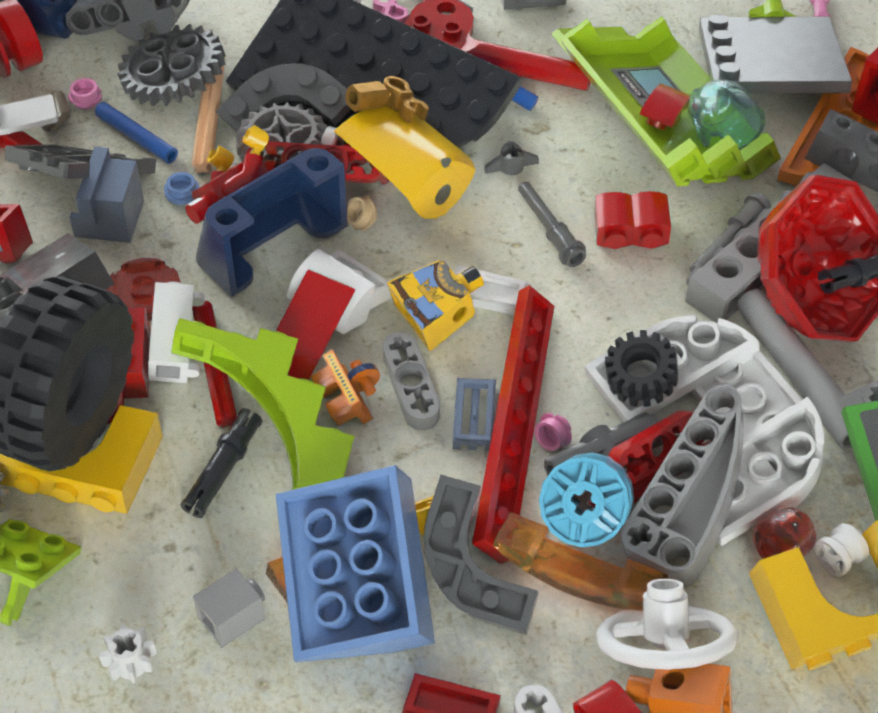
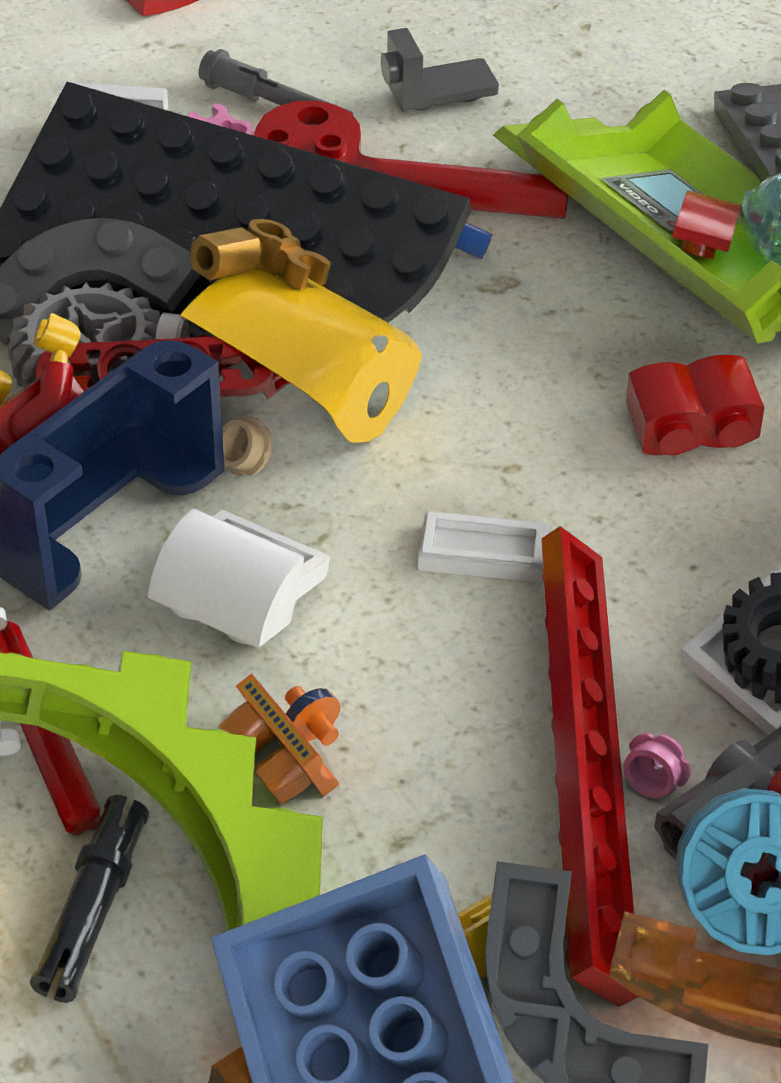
camera: 10 degrees left, 5 degrees down
(313, 319) = (207, 621): red sticker -> none
(408, 394) = (393, 736): light grey beam -> none
(435, 300) = (404, 571): torso -> none
(472, 438) = (518, 795): sand blue tile -> none
(511, 160) = (471, 336): dark grey piece -> none
(570, 250) = (607, 465): dark grey pin -> none

